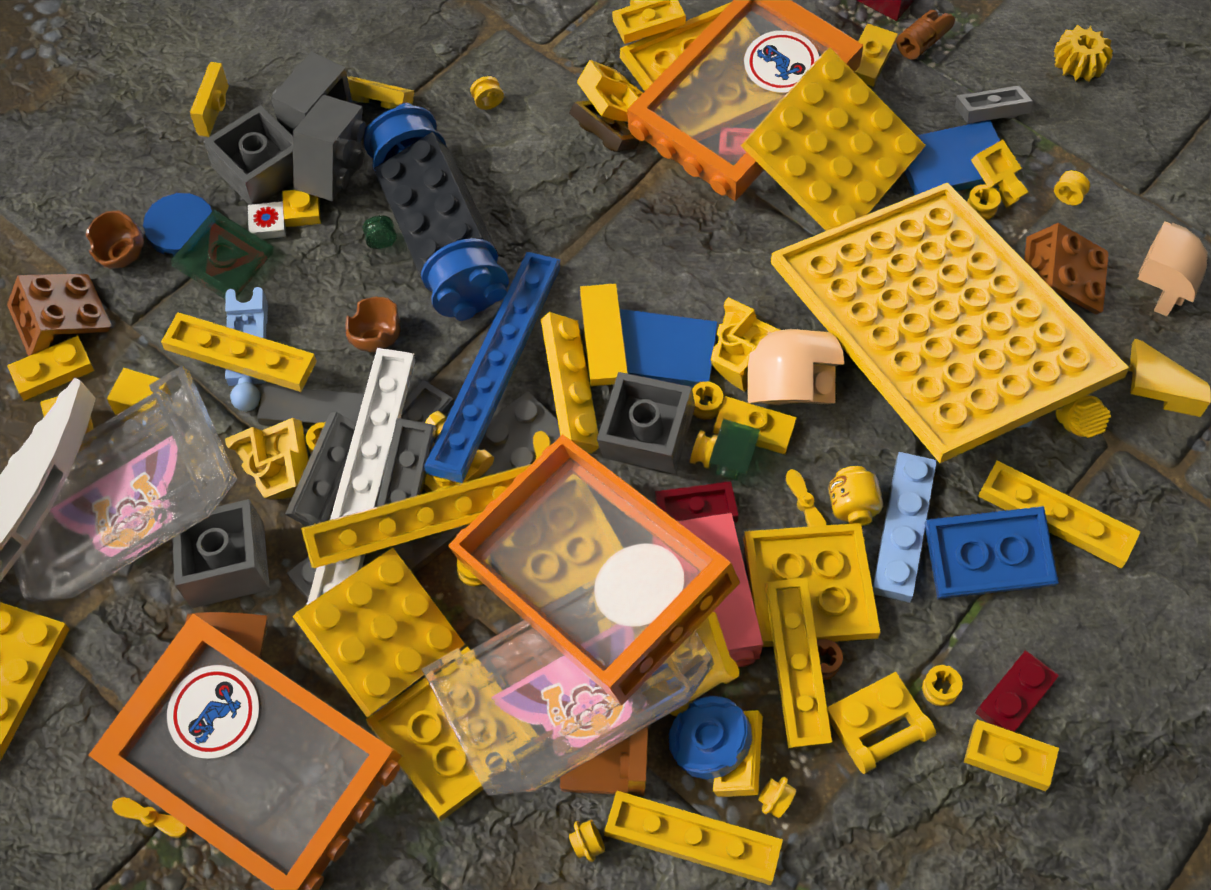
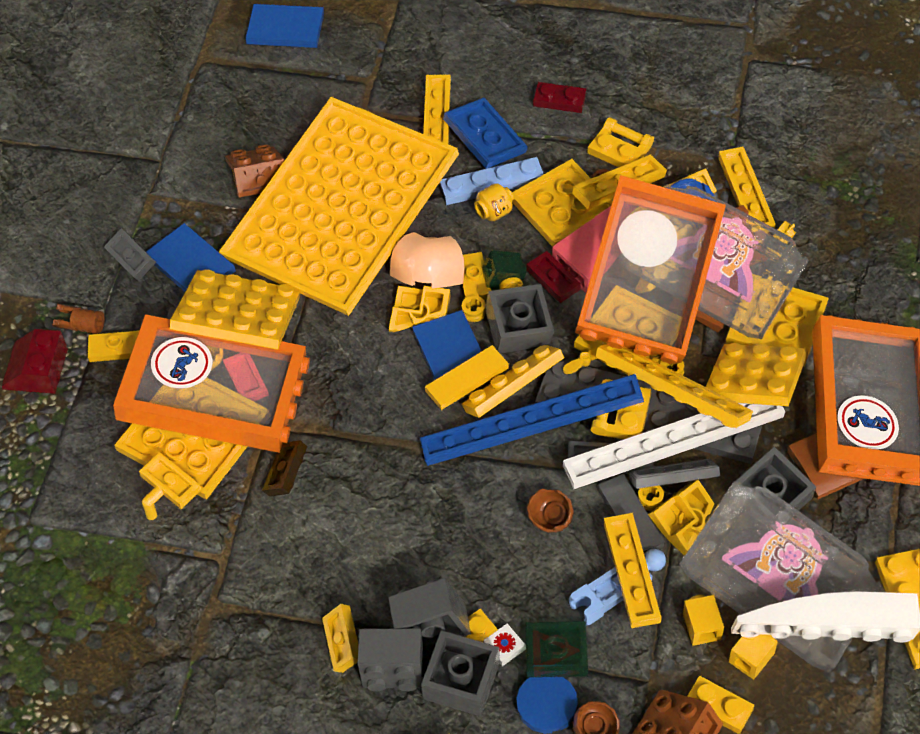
camera: 115 degrees left, 5 degrees down
(379, 232) = (469, 558): clear green bush -> none
(406, 461) = (650, 413): dark grey tile -> none
(435, 212) = (438, 518): brick -> none
(487, 92) = (298, 562): yellow bush -> none
(608, 90) = (250, 480): yellow slope -> none
(776, 797) = (696, 162): yellow plate -> none
(805, 500) = (509, 230): yellow piece -> none
(946, 673) = (579, 121): yellow bush -> none
(990, 195) = (213, 229): yellow bush -> none
(999, 167) = (195, 225): yellow plate -> none
(1011, 755) = (598, 85): yellow plate -> none
(1072, 187) = (182, 189): yellow bush -> none
(1083, 53) = (52, 223): yellow gear -> none
(1167, 381) = (306, 100): yellow slope -> none
(1175, 265) = (222, 111): light nougat brick -> none

